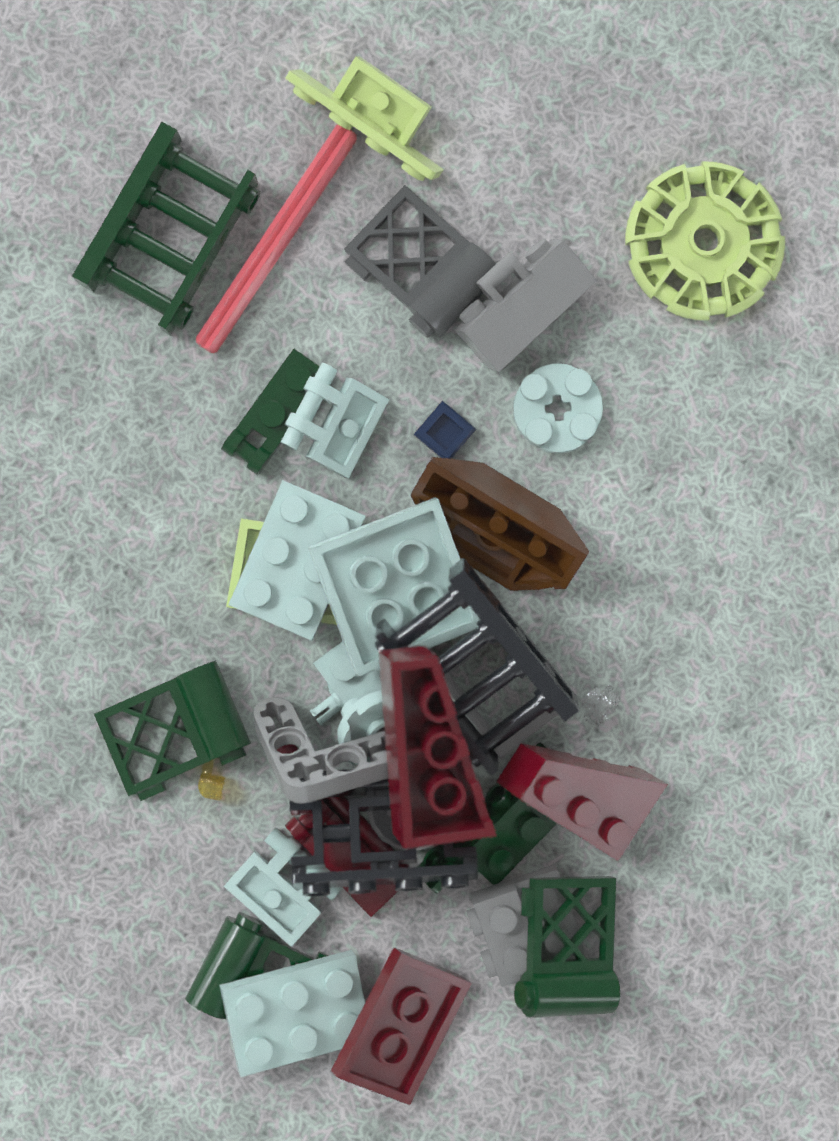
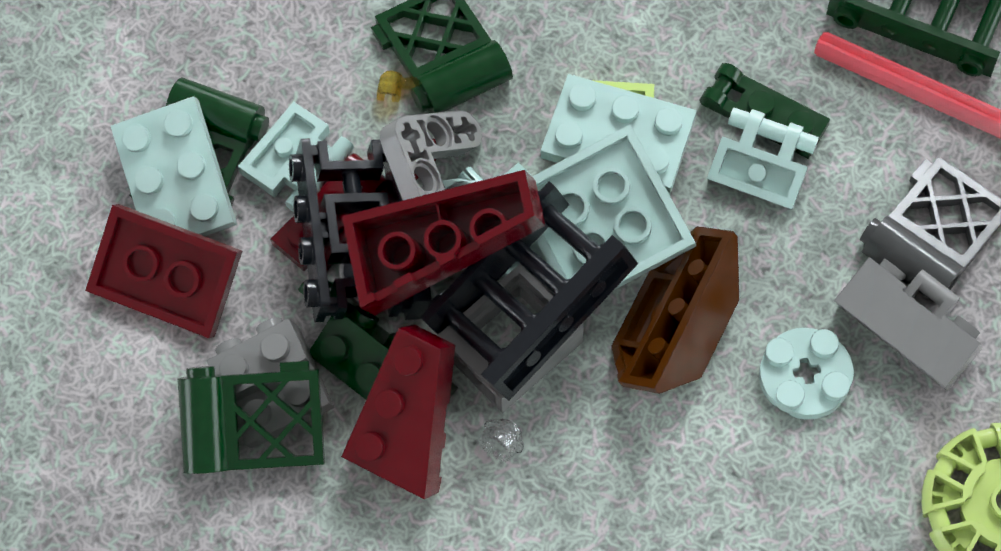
camera: 90 degrees right, 20 degrees down
(444, 431) = (766, 267): dark blue tile -> none

